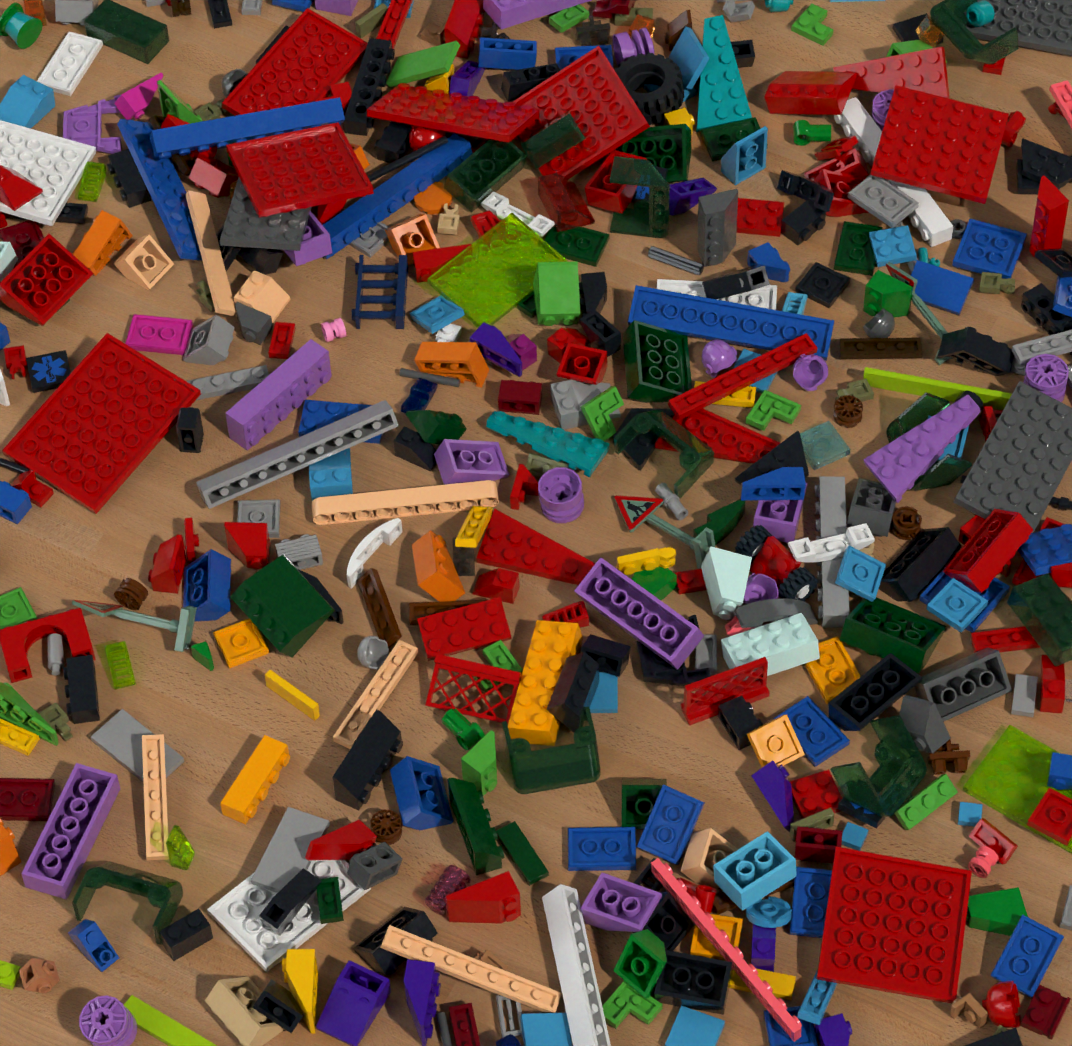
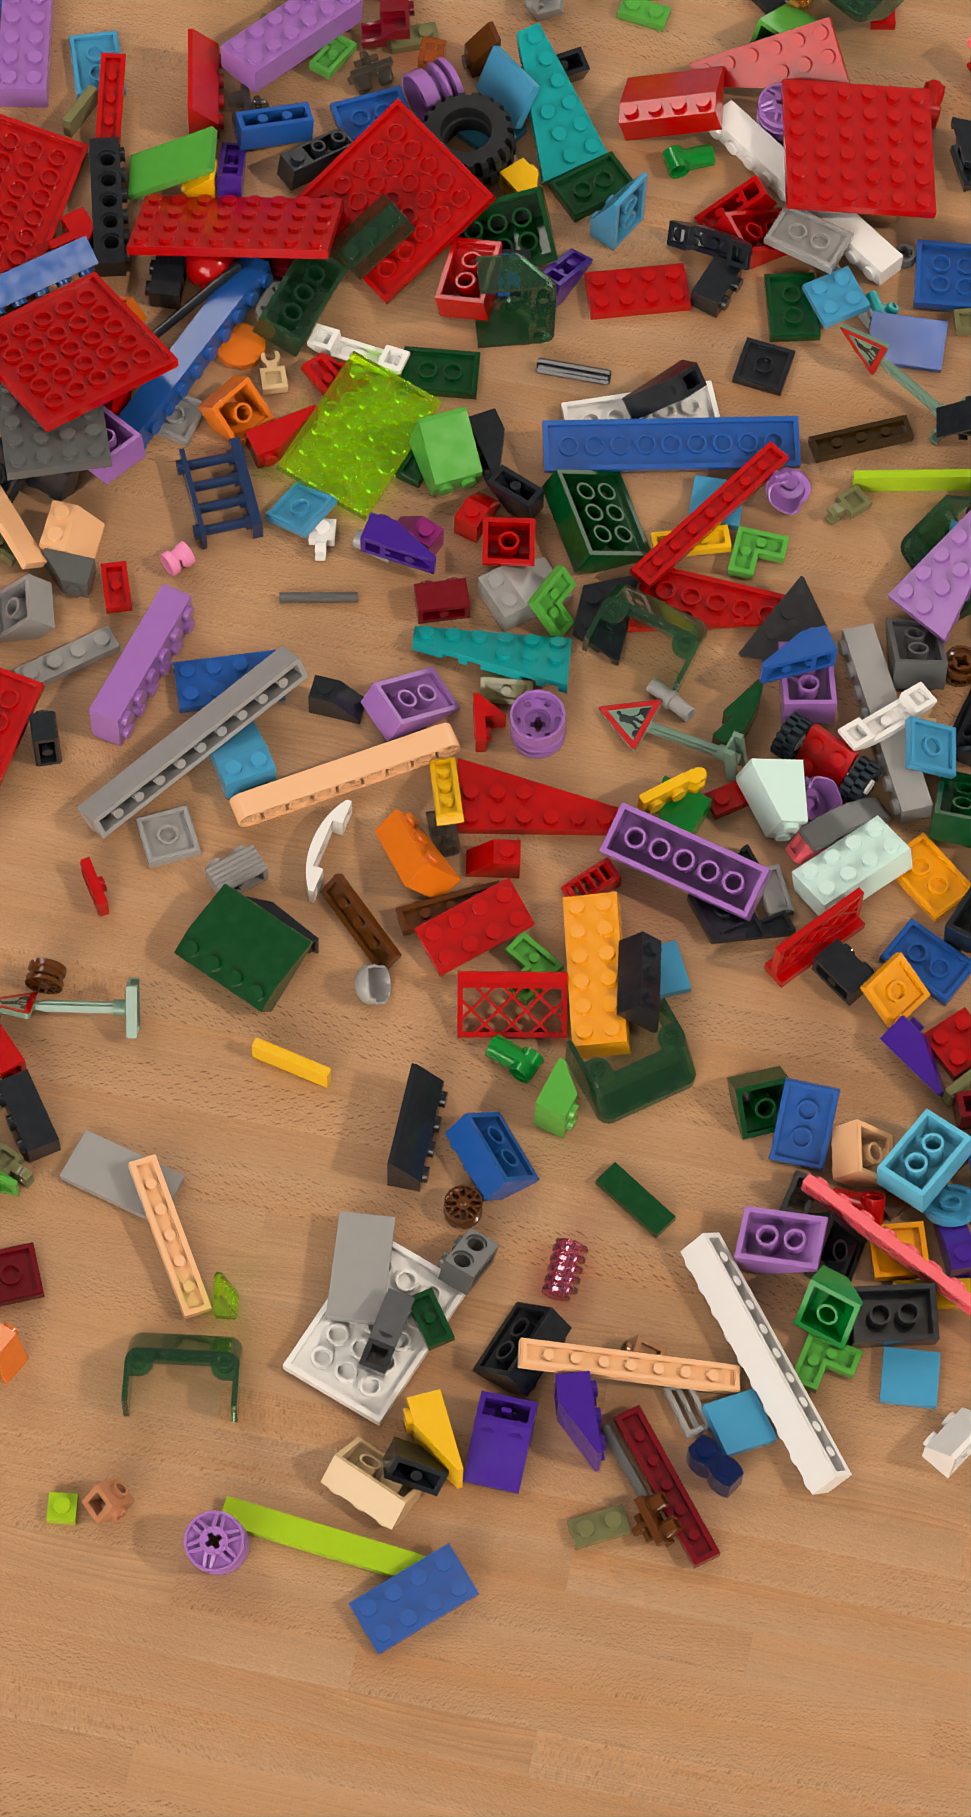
camera: 20 degrees left, 10 degrees up
(71, 831) = (81, 1306): medium lavender brick -> none
(93, 944) = (158, 1443): blue slope -> none
(118, 652) = (53, 1054): clear neon green slope -> none
(168, 566) = (79, 927): red slope -> none
(186, 934) = (268, 1403): black brick -> none
(203, 655) = (164, 1036): green slope -> none
(208, 586) = (137, 943): blue slope -> none
(241, 643) = (202, 1007): light orange tile -> none
(249, 543) = (172, 876): red slope -> none
(255, 780) = (283, 1184): light orange brick -> none
(342, 843) = (423, 1242): red slope -> none
(376, 693) = (393, 1038): light nougat plate -> none
(420, 395) = (314, 628): clear blue slope -> none
(434, 34) = (169, 113): medium nougat bracket -> none
(436, 425) = (355, 665): dark green slope -> none
(453, 360) = (342, 569): orange wedge -> none
(475, 826) = (570, 1181): dark green slope -> none
(485, 902) = (620, 1275): red slope -> none
(563, 202) = (410, 321): clear red slope -> none
(601, 848) = (728, 1171): blue tile -> none
(609, 654) = (659, 920): black brick -> none
(717, 226) = (619, 321): dark grey slope -> none
(718, 356) = (669, 494): medium lavender cap -> none
(774, 265) = (688, 345): blue slope -> none
(793, 307) = (738, 405): medium azure slope -> none
(823, 445) = (830, 583): clear light blue plate -> none
(836, 147) = (727, 175): red plate -> none
(848, 411) = (847, 533): reddish brown wheel -> none
(880, 325) = (852, 408): dark grey hair -> none
(887, 293) = (852, 369): green slope -> none

